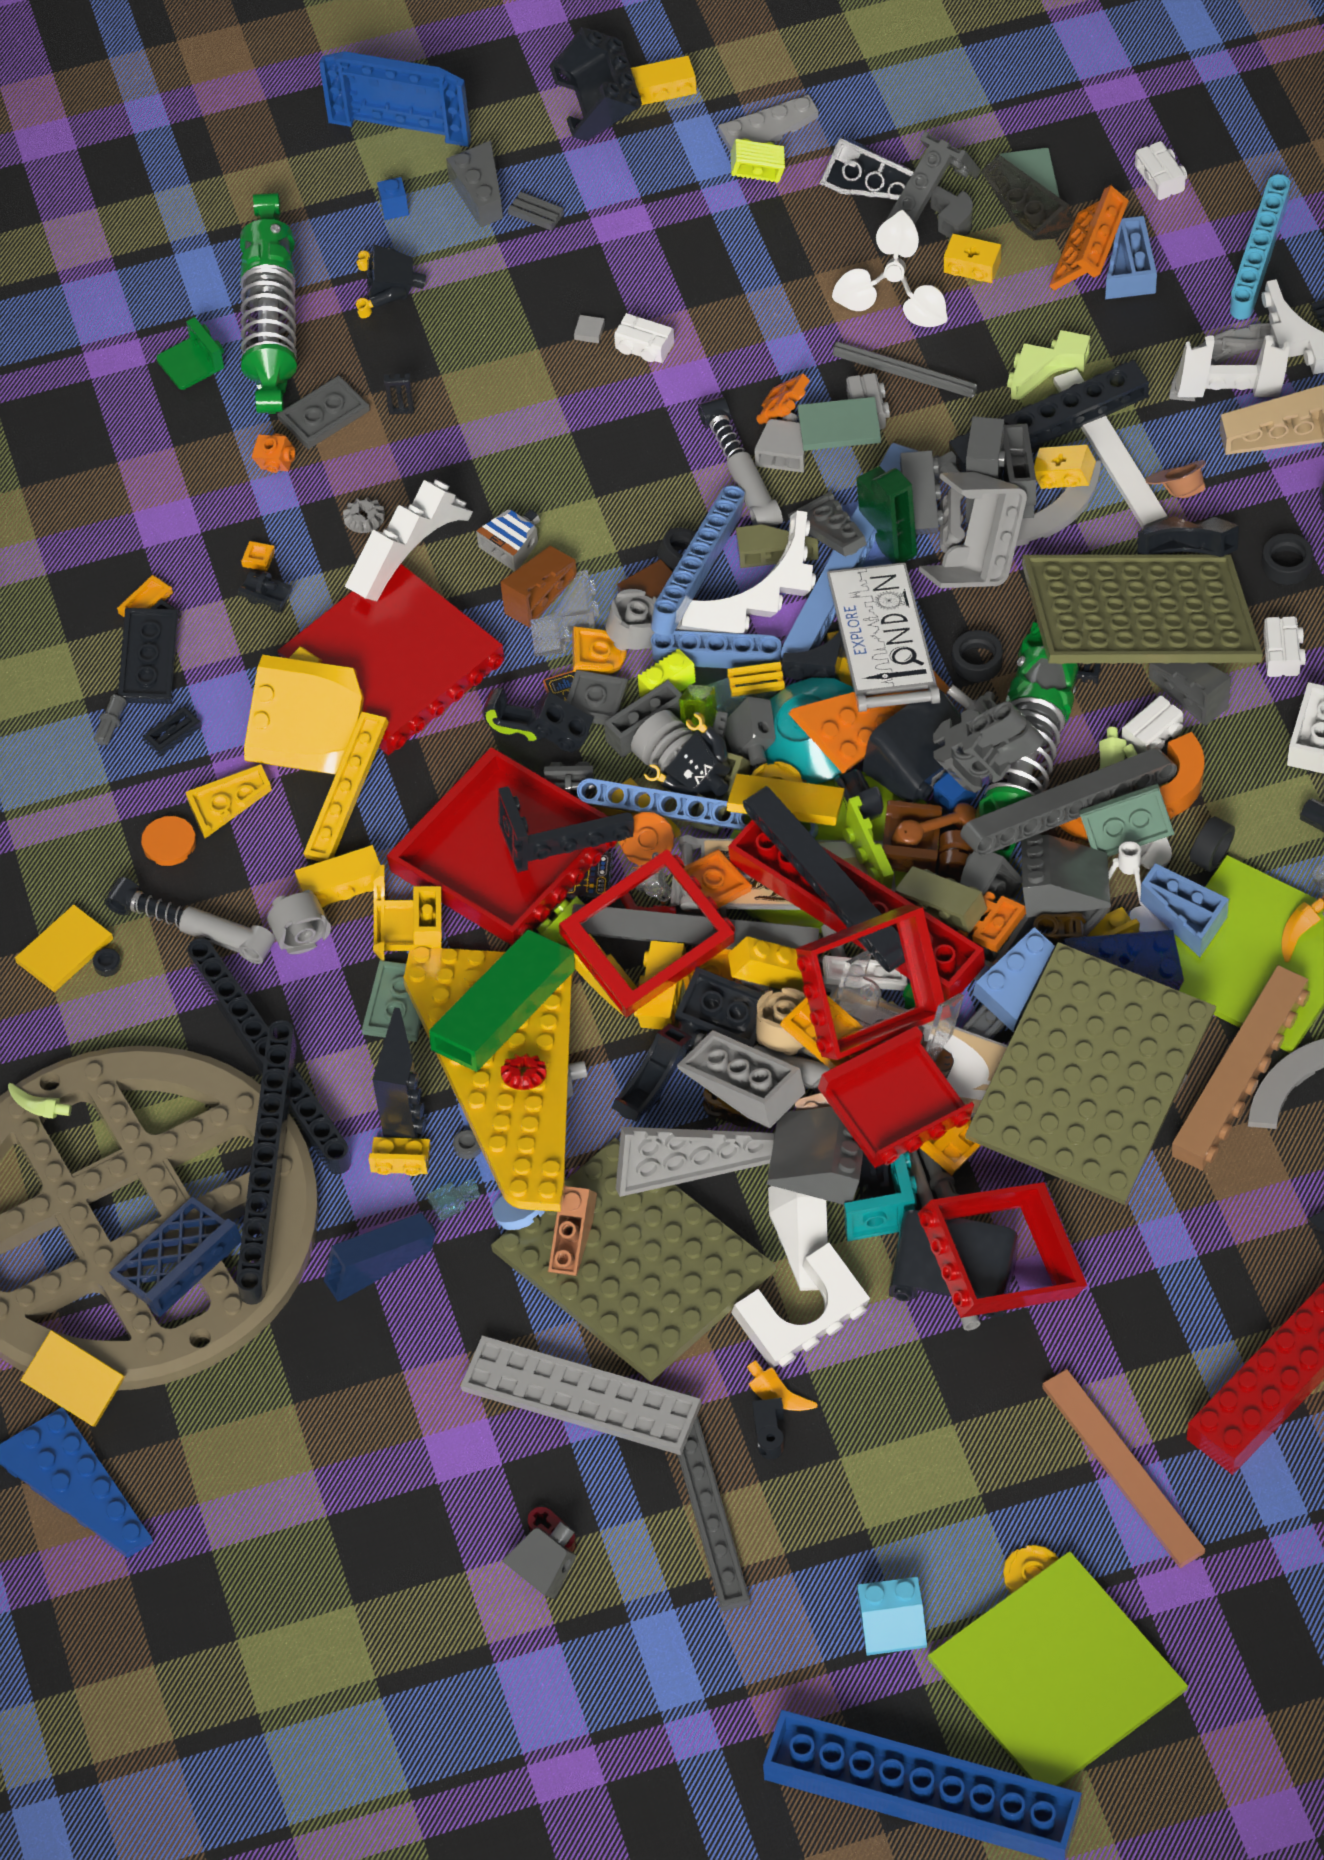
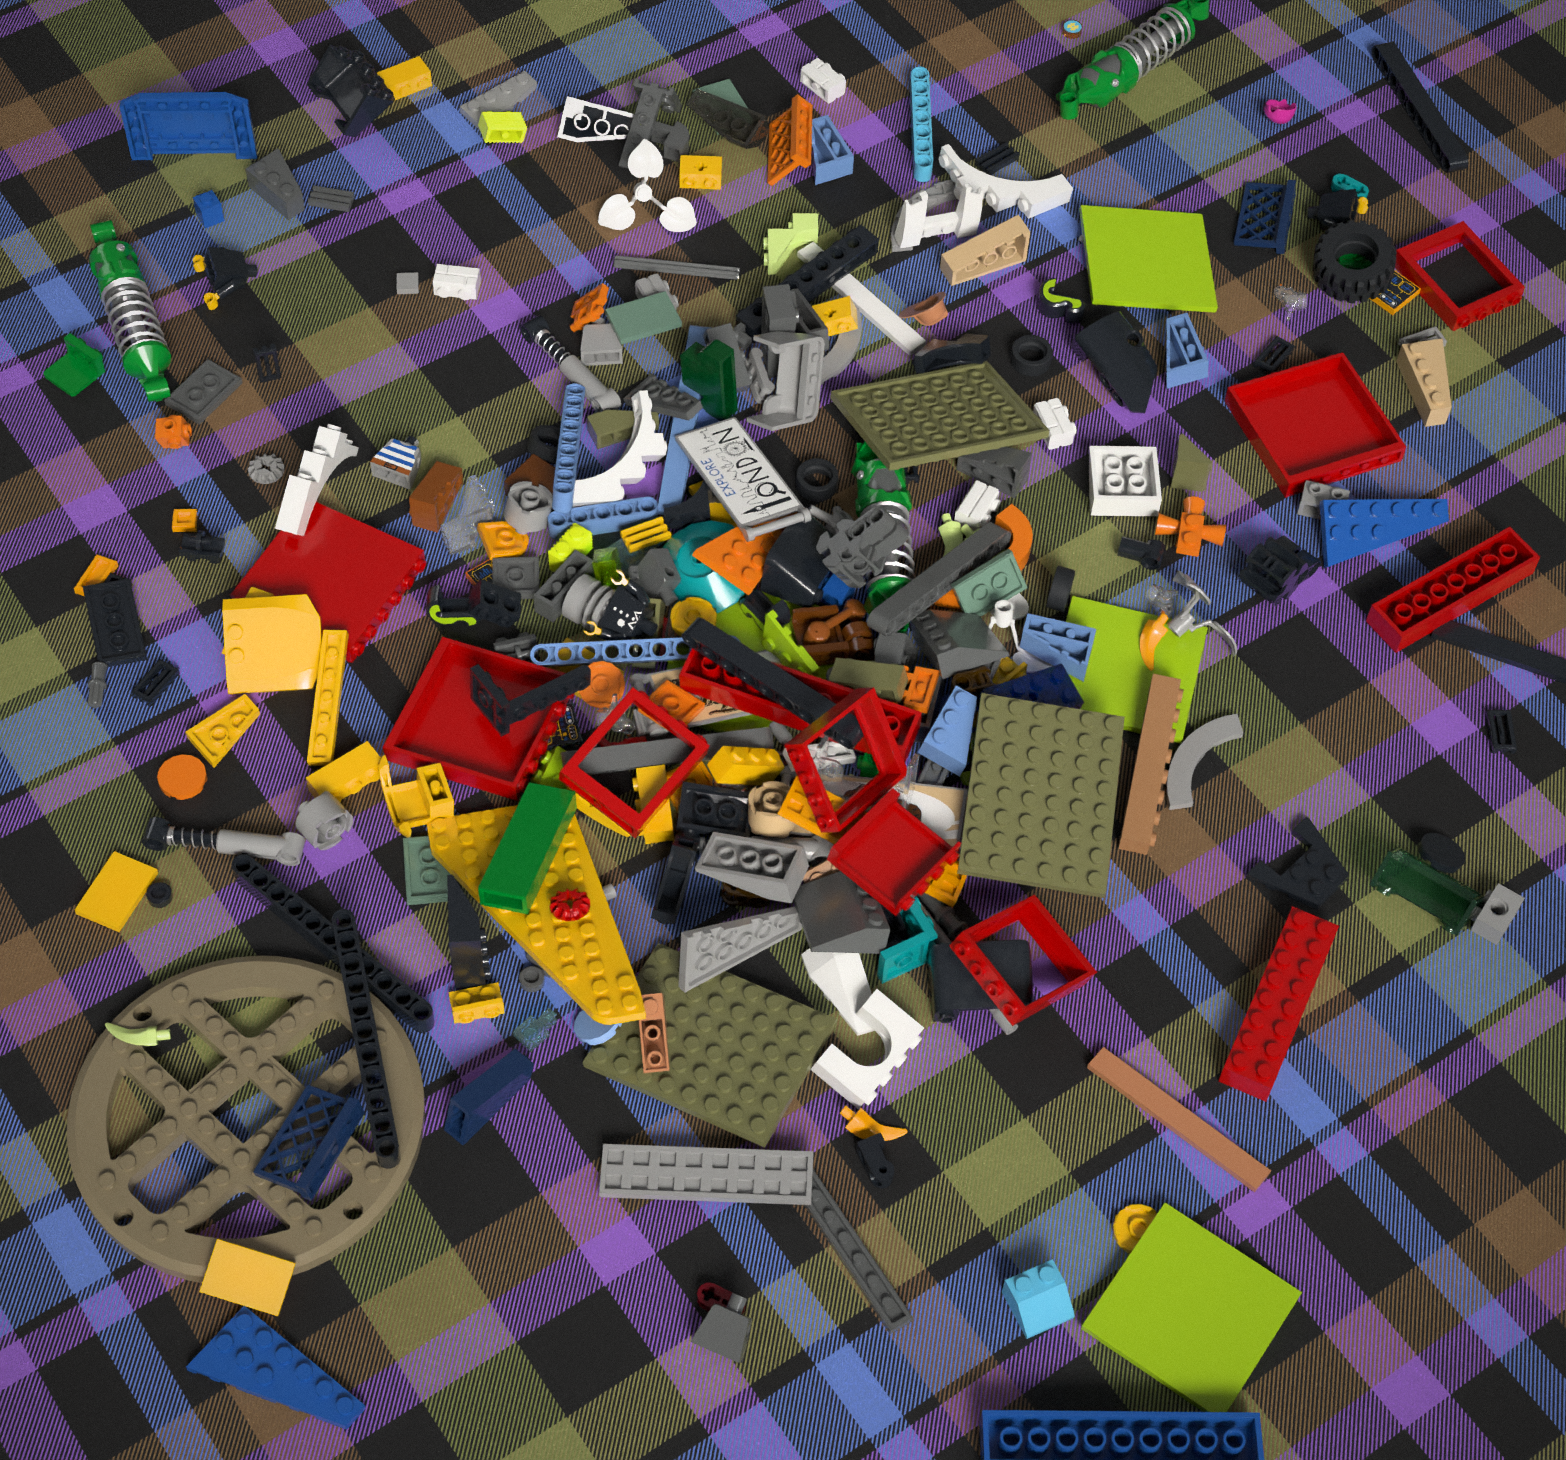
camera: 25 degrees left, 0 degrees up
(804, 800) = (736, 622): yellow tile -> none

